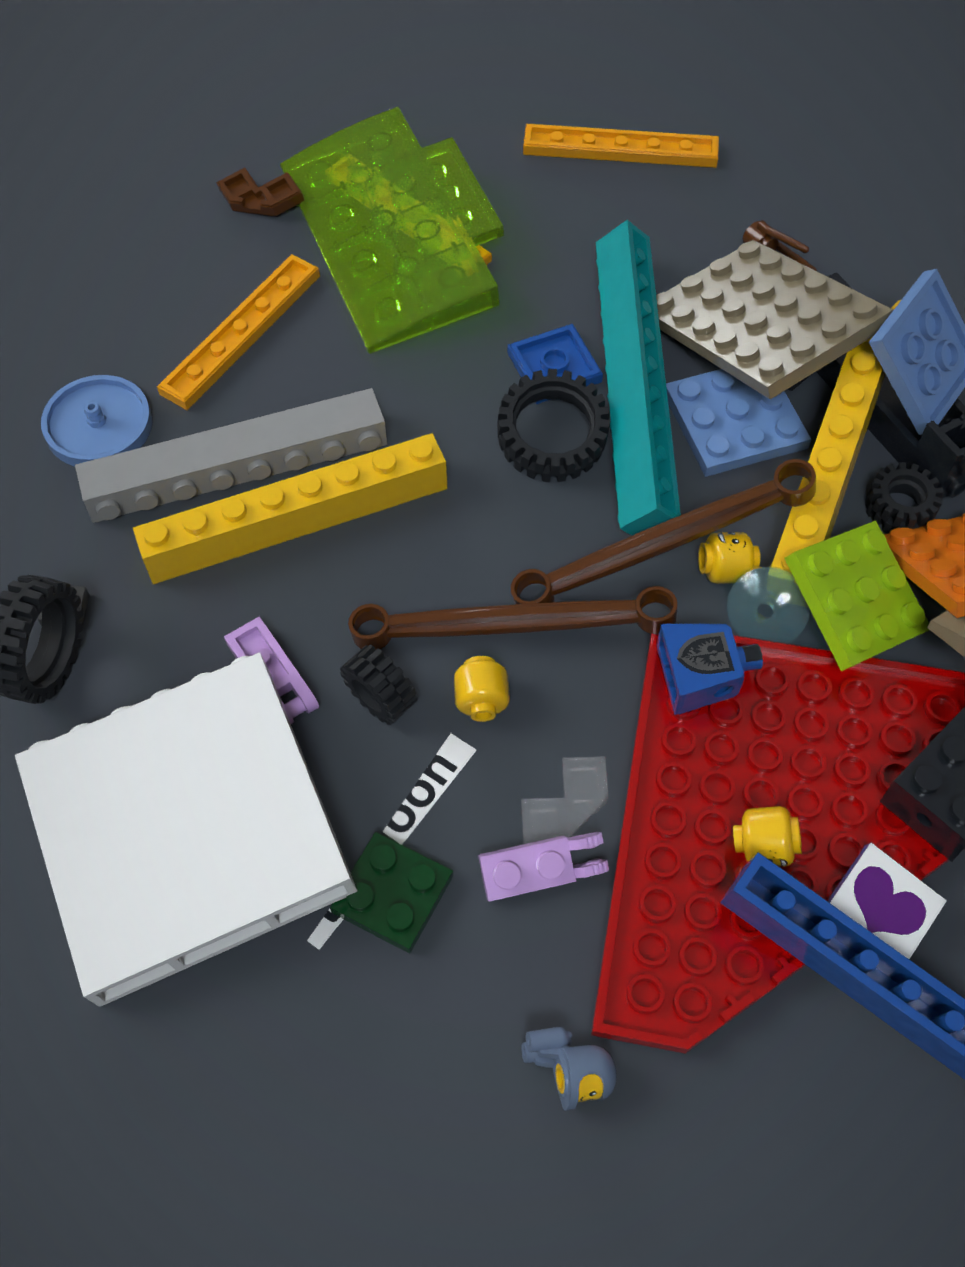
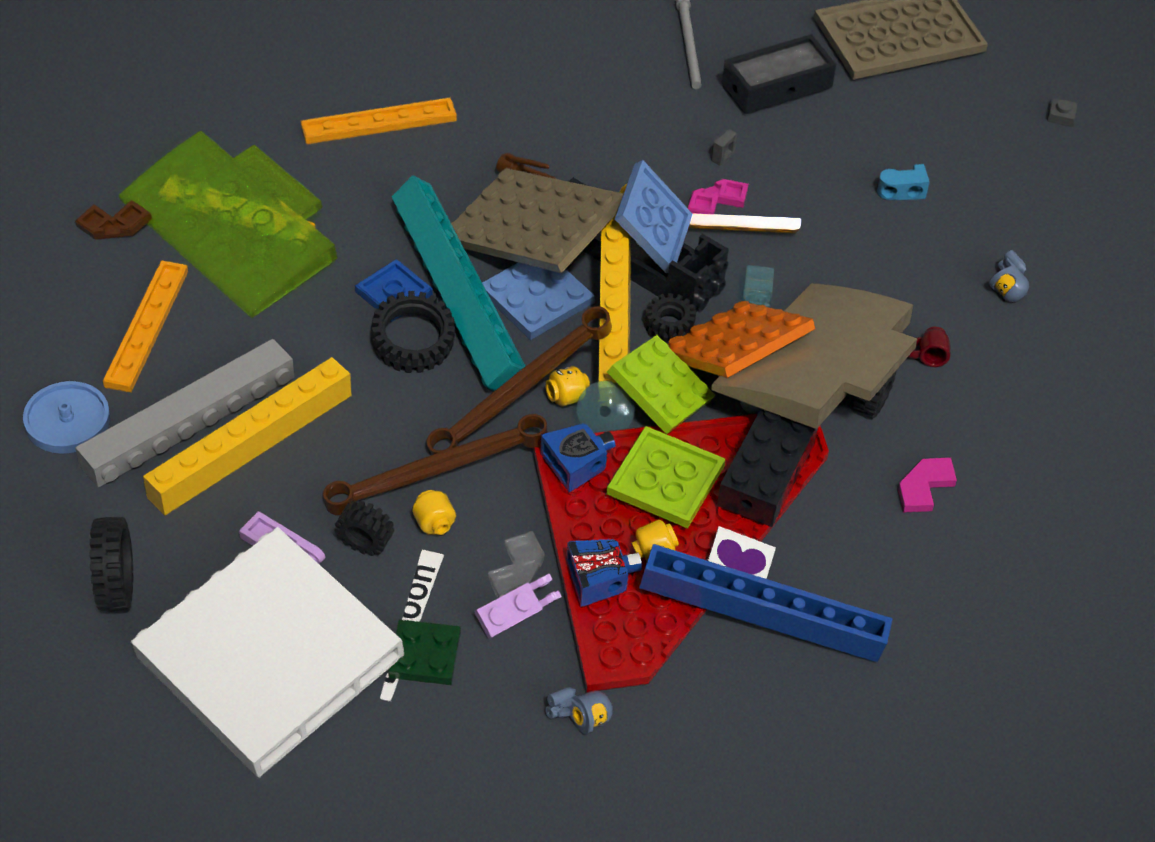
camera: 25 degrees left, 10 degrees down
(674, 853) = (599, 569): none -> blue torso
(819, 737) = (666, 477): none -> lime plate

